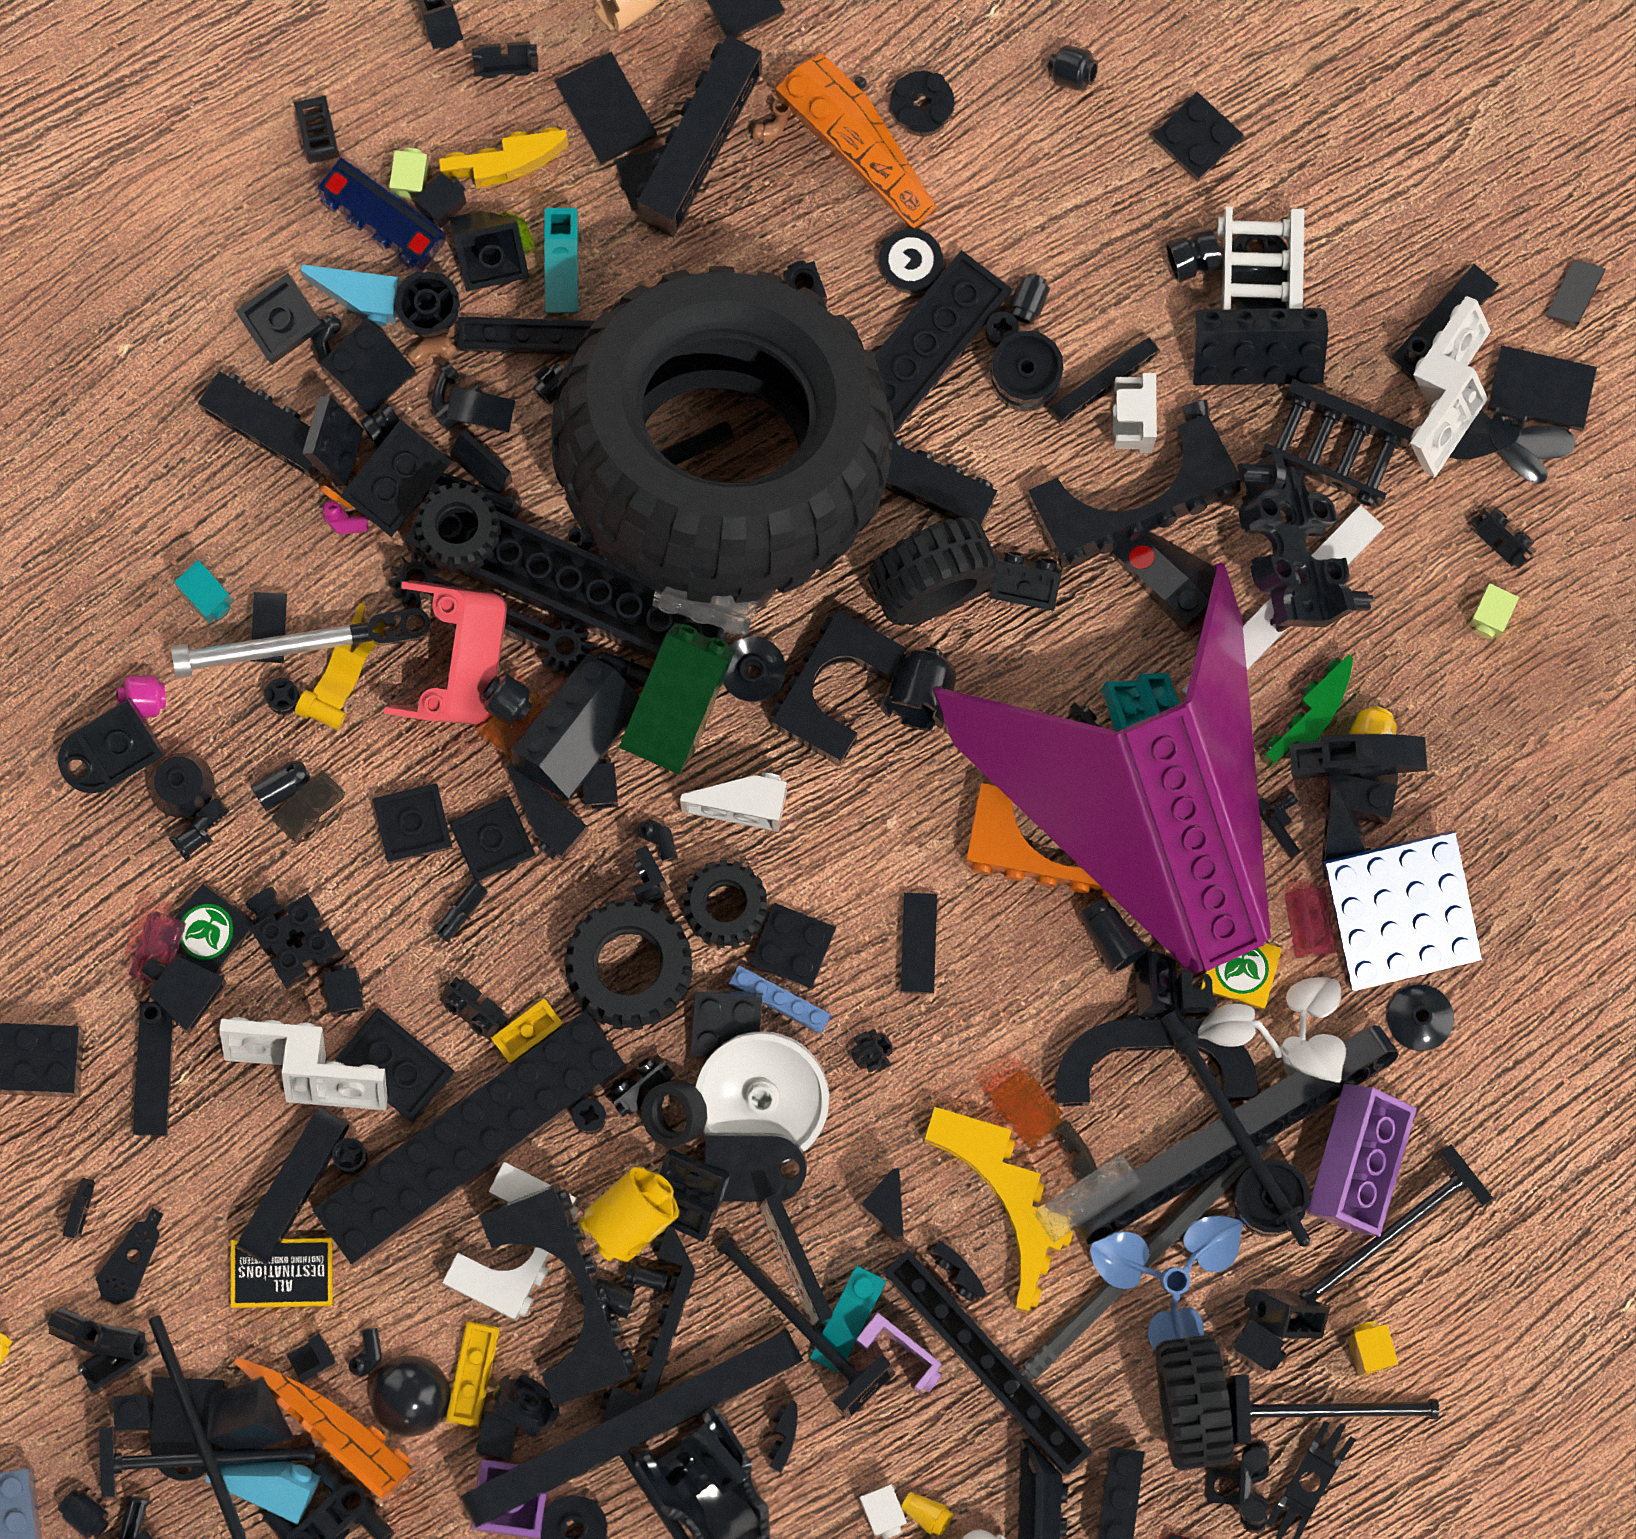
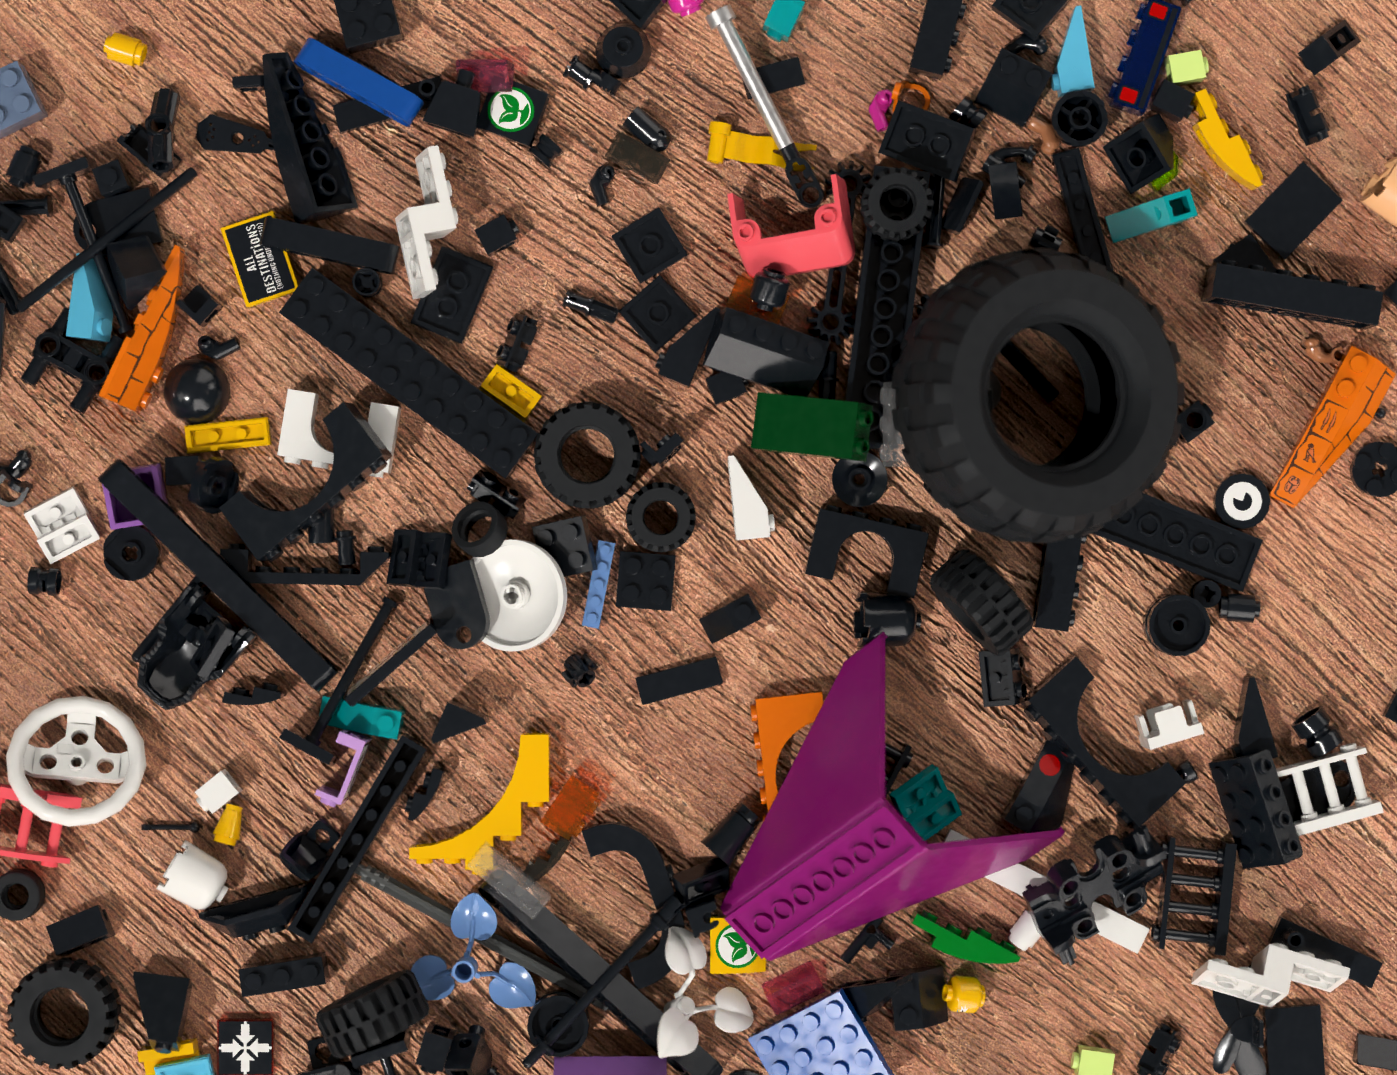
camera: 75 degrees right, 10 degrees up
(117, 1093) = (358, 82): none -> blue beam
(188, 1182) = (306, 159): none -> black wedge
(278, 691) = (721, 103): black wheel -> none
(317, 945) = (525, 202): black brick -> none
(322, 858) = (600, 182): none -> black arm
(333, 441) = (940, 79): black plate -> none
(593, 1123) = (461, 465): black wheel -> none
(630, 1214) = (386, 520): yellow cylinder -> none
(660, 836) = (701, 448): black arm -> none
(865, 862) = (730, 618): none -> black slope
(990, 1431) = (305, 854): none -> black piece
(1104, 381) = (1188, 690): black beam -> none
(1164, 323) = (1251, 725): none -> black slope
(1322, 642) = (1024, 932): none -> white brick
(1359, 754) = (936, 991): black slope -> none

